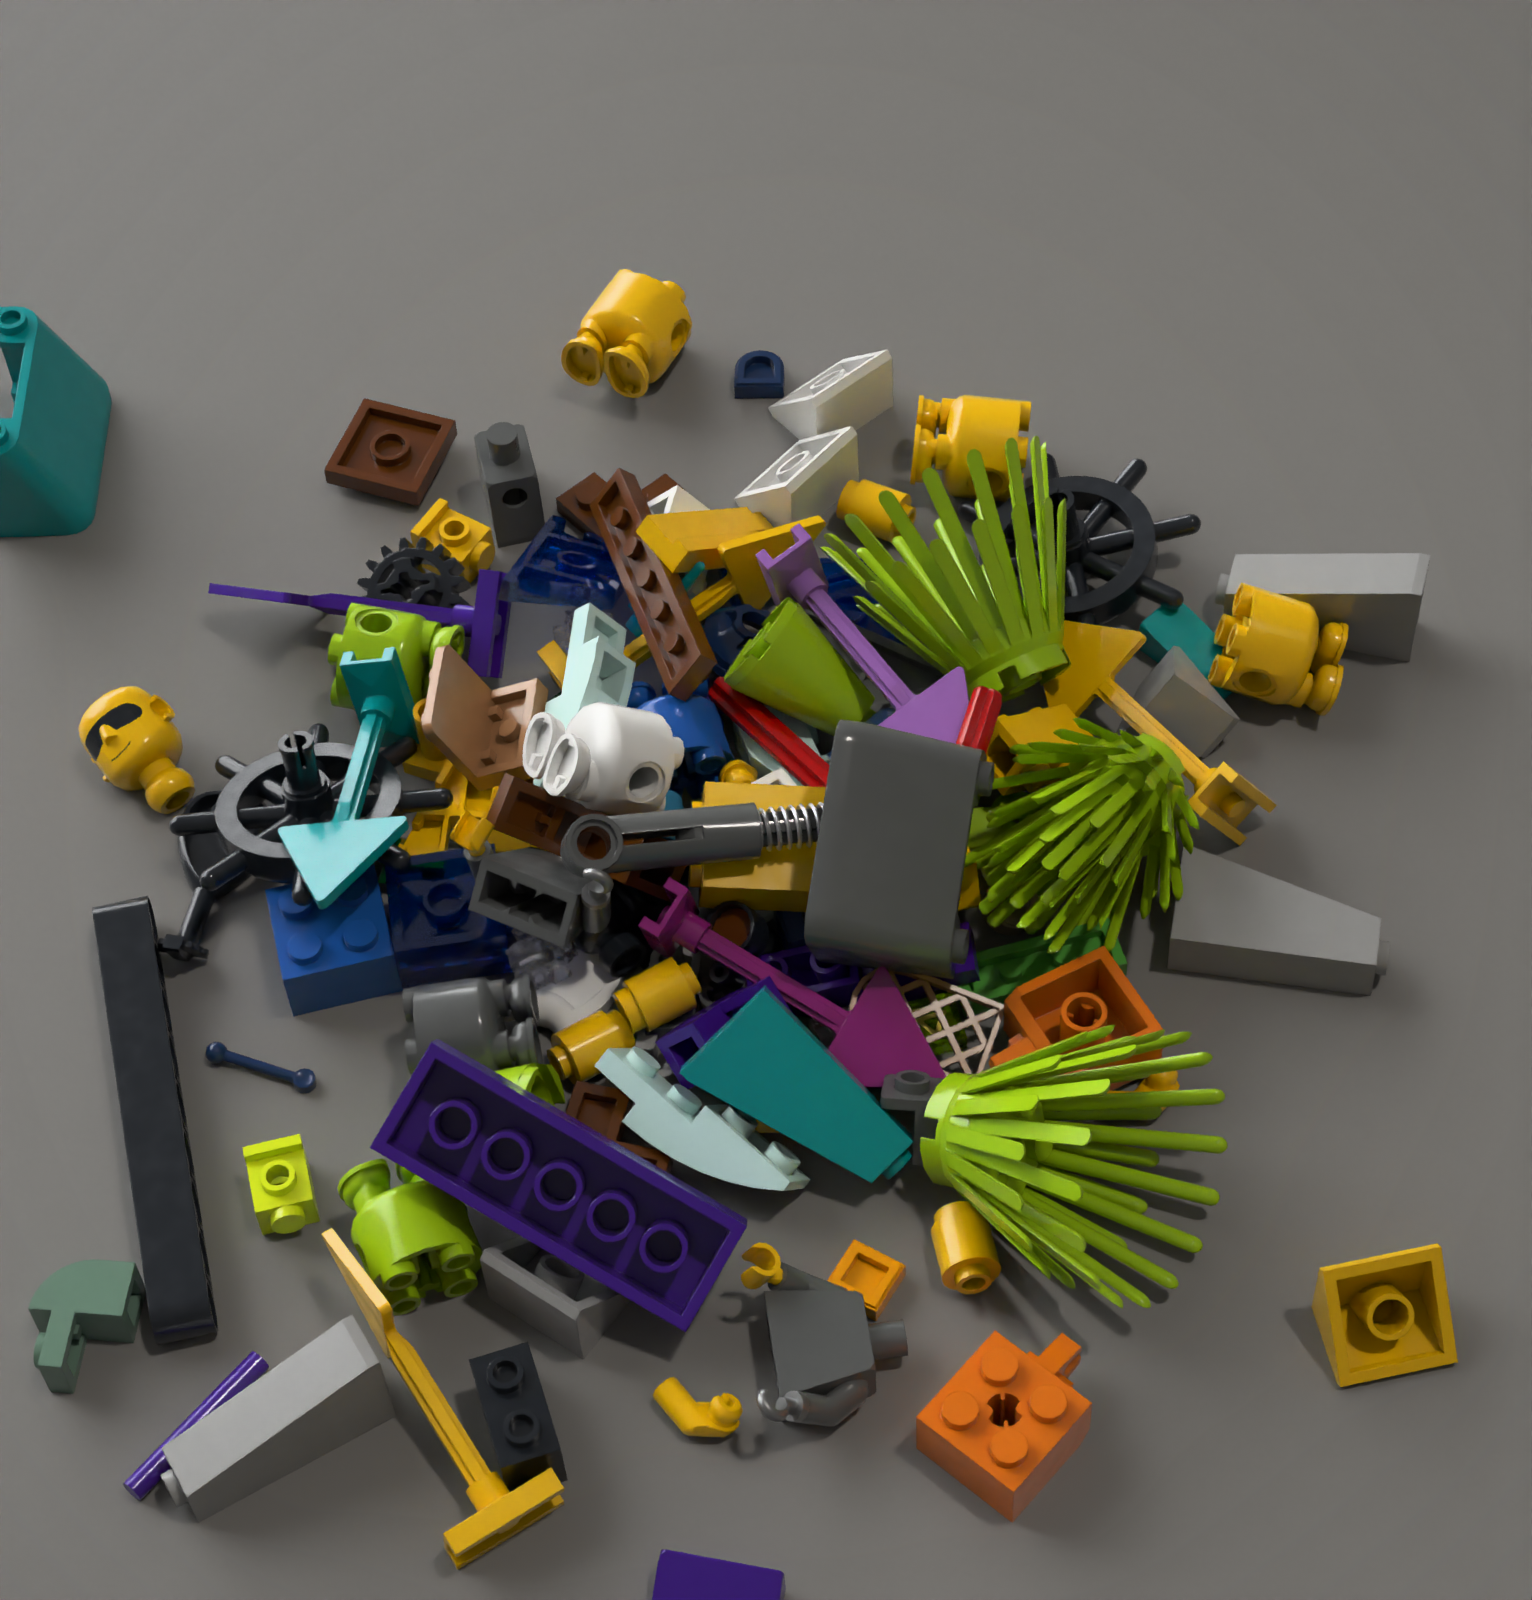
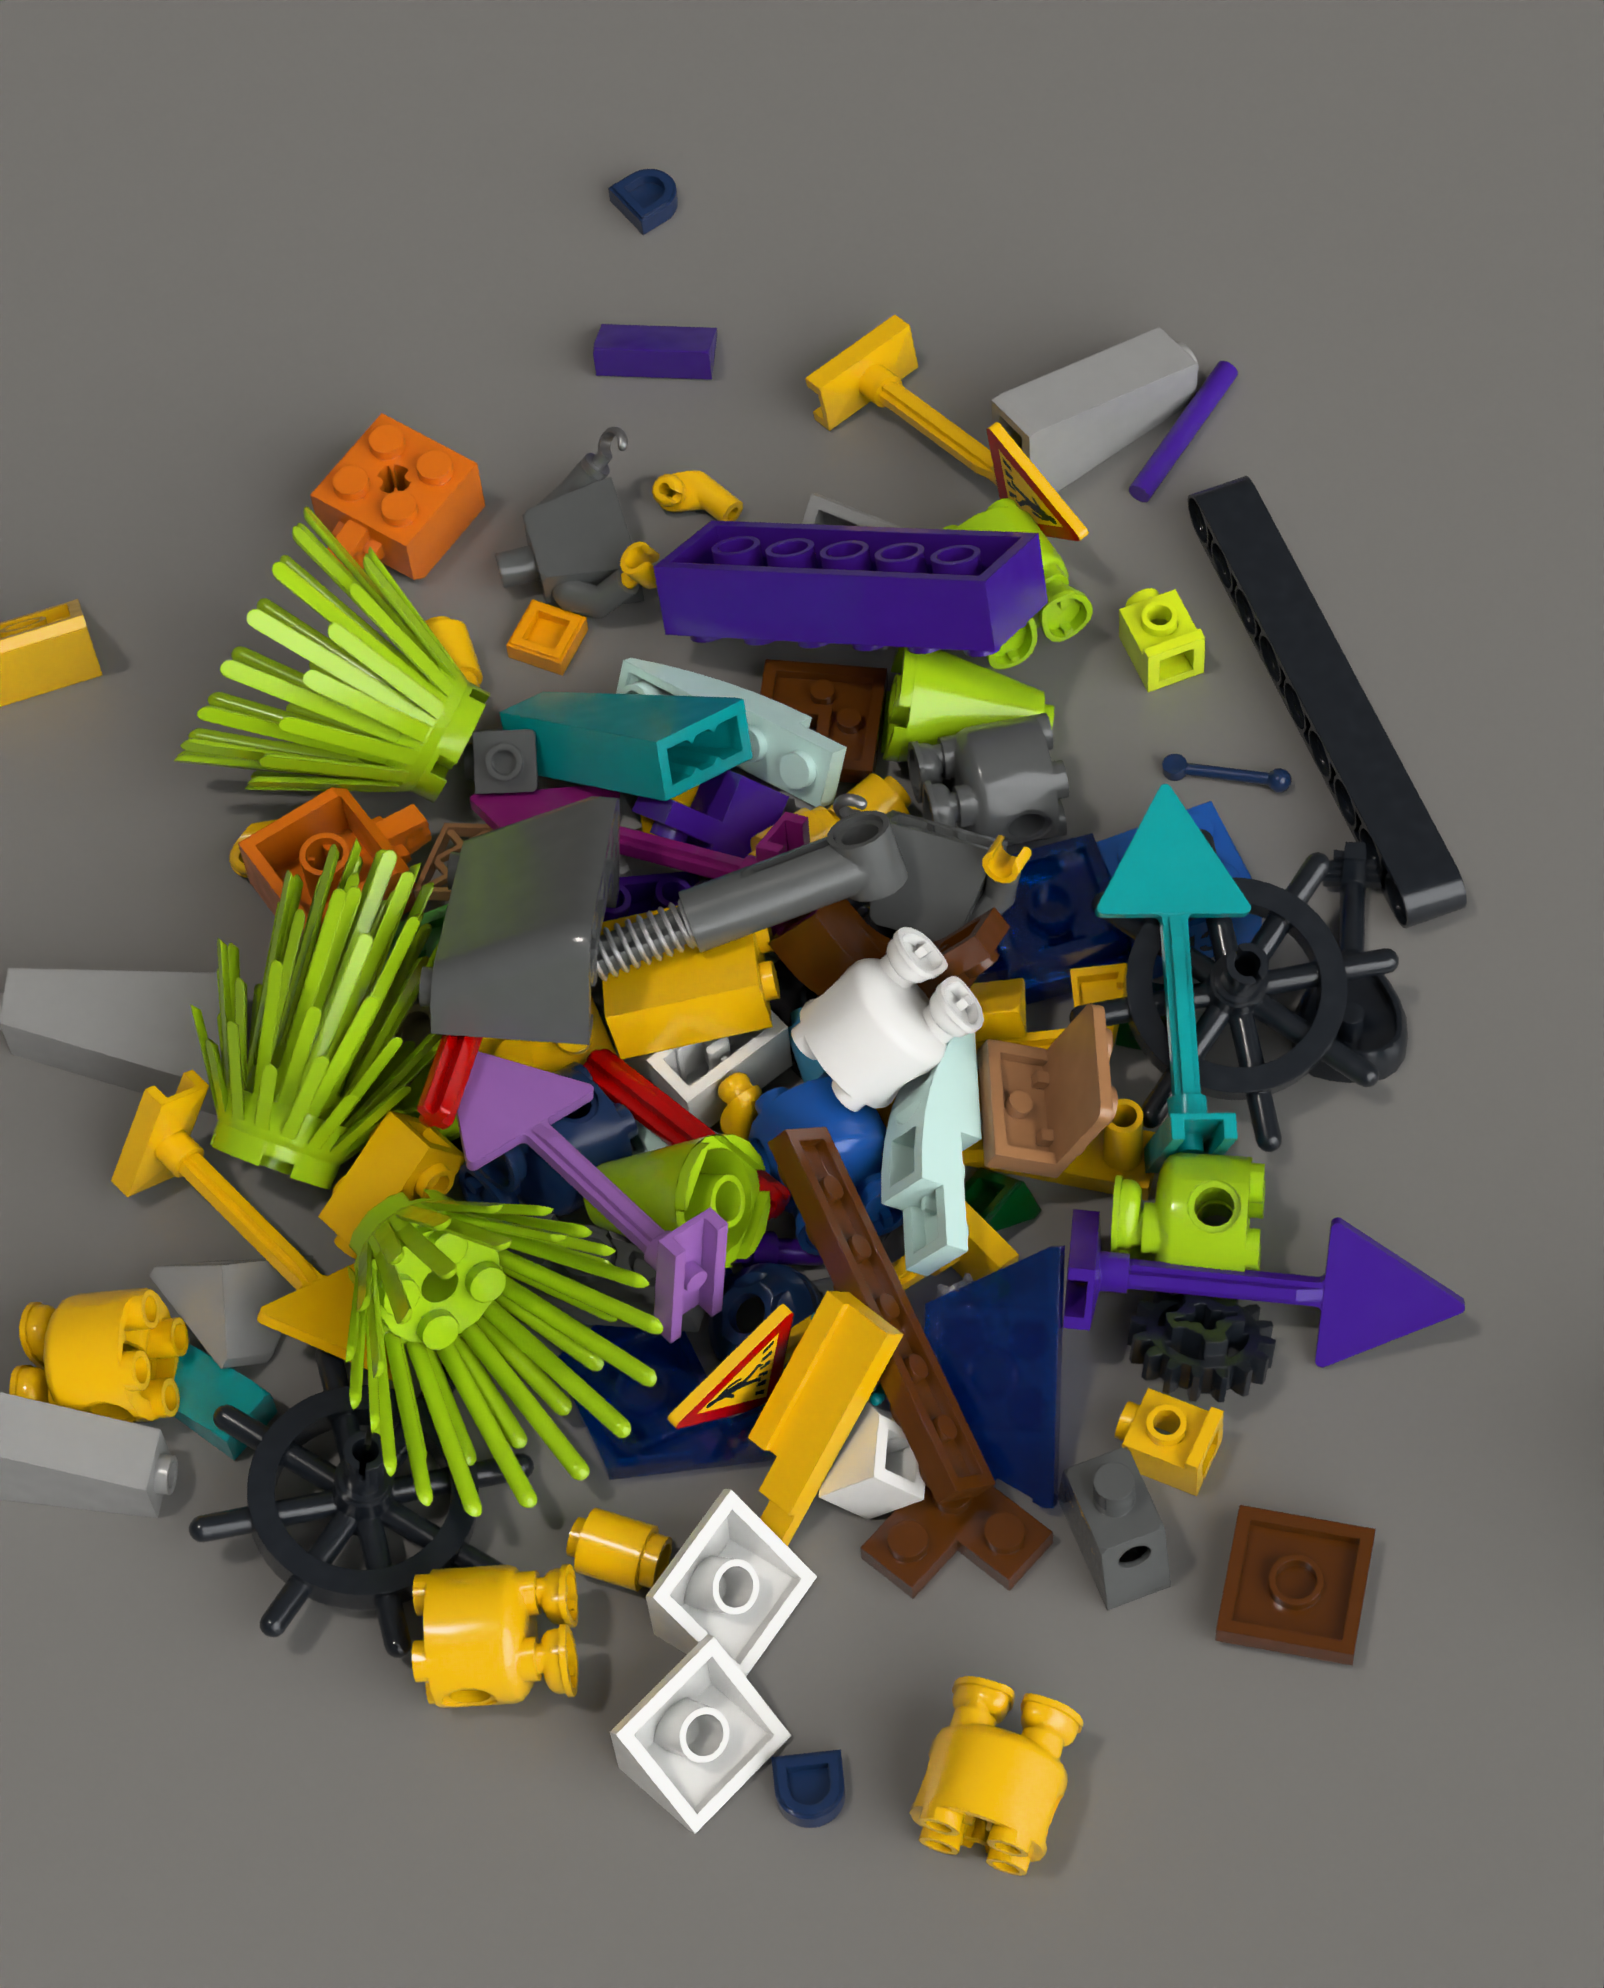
camera: 175 degrees right, 5 degrees up
(83, 1303) = (1324, 502): sand green brick -> none
(138, 746) = (1485, 1093): yellow piece -> none
(517, 1415) = (865, 448): black brick -> none

